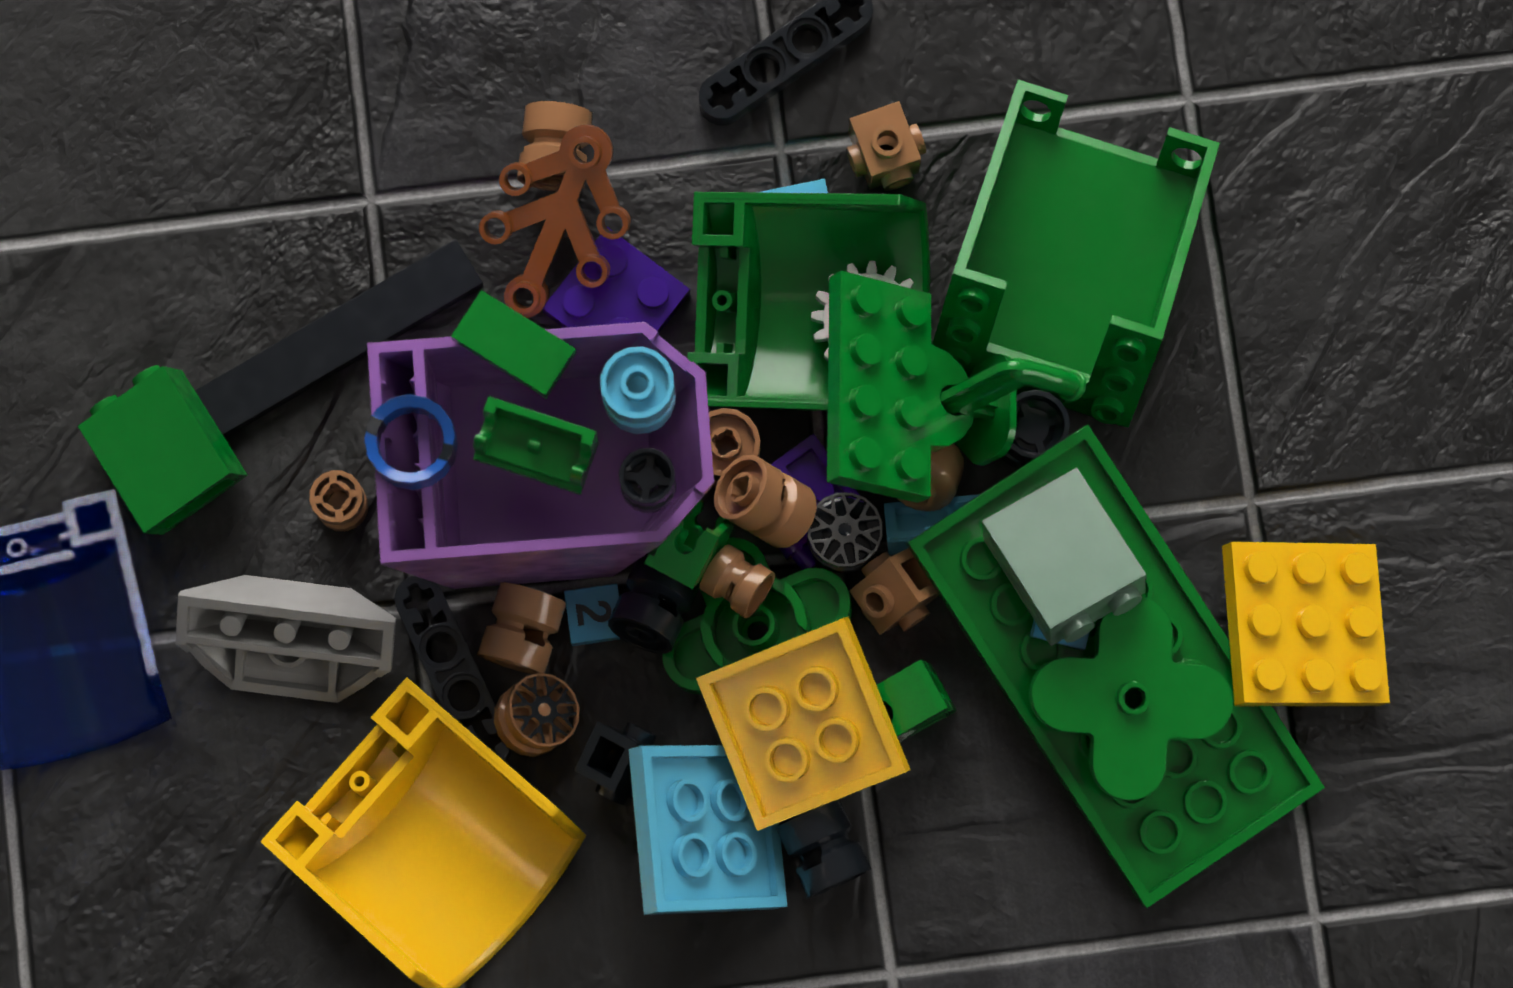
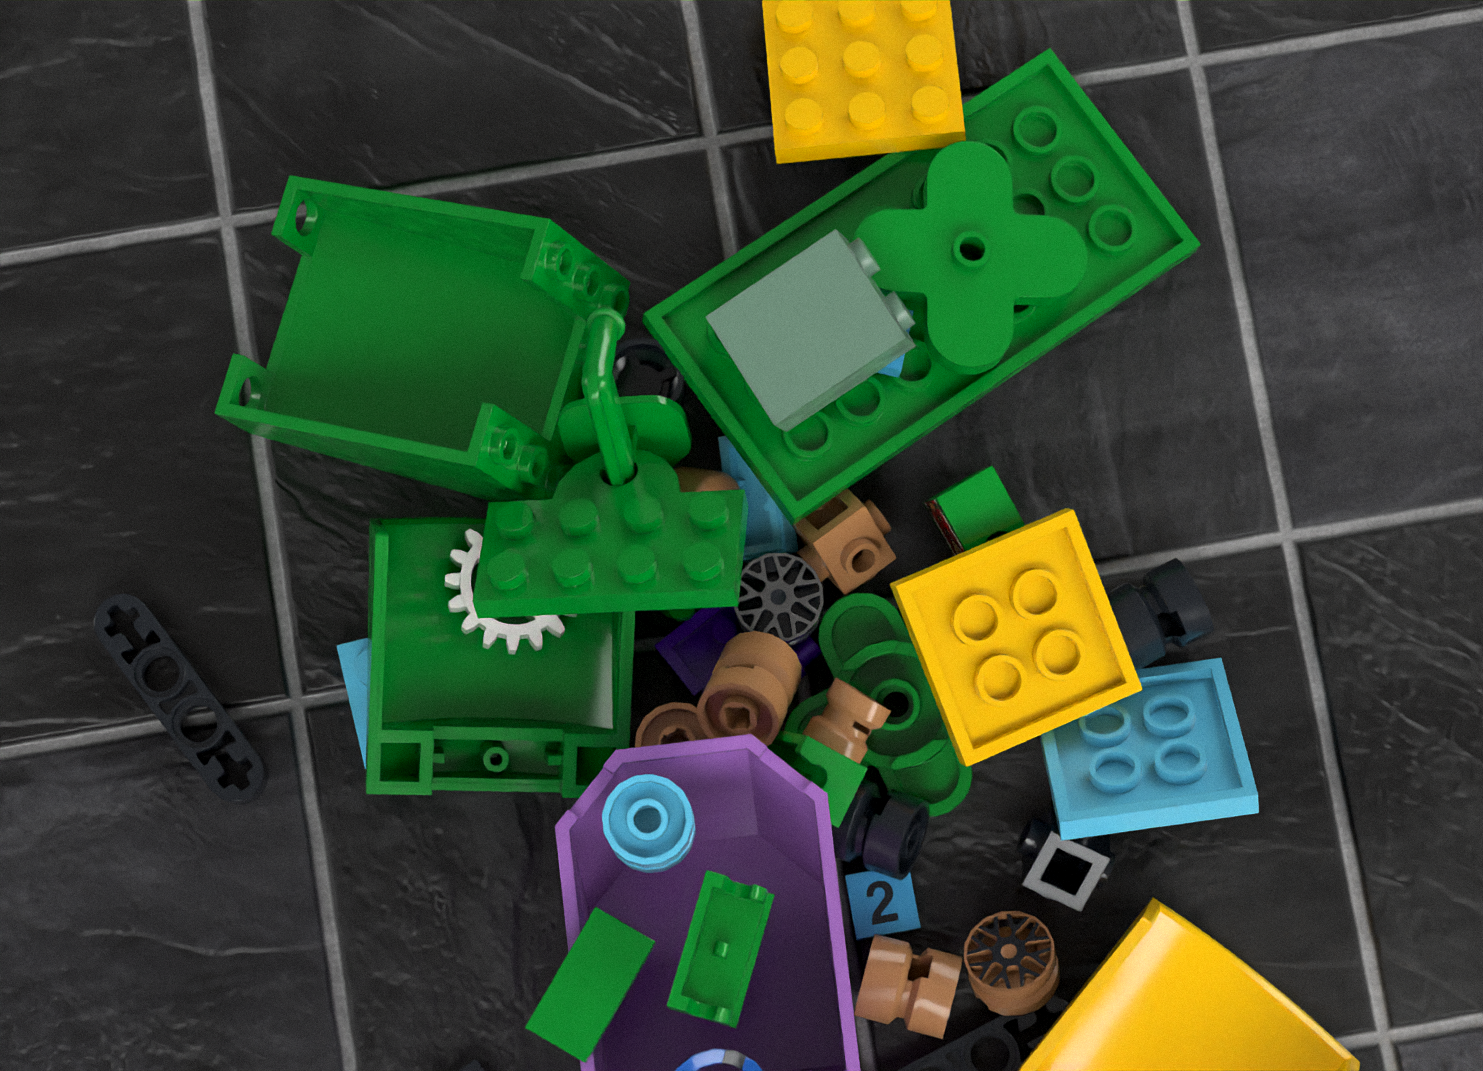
camera: 85 degrees left, 0 degrees up
(544, 128) = (303, 975): medium nougat wheel -> none
(560, 213) = (392, 960): dark orange plant -> none
(632, 293) = (490, 894): dark purple plate -> none
(647, 469) = (759, 797): black wheel -> none
(881, 131) = (280, 560): medium nougat brick -> none

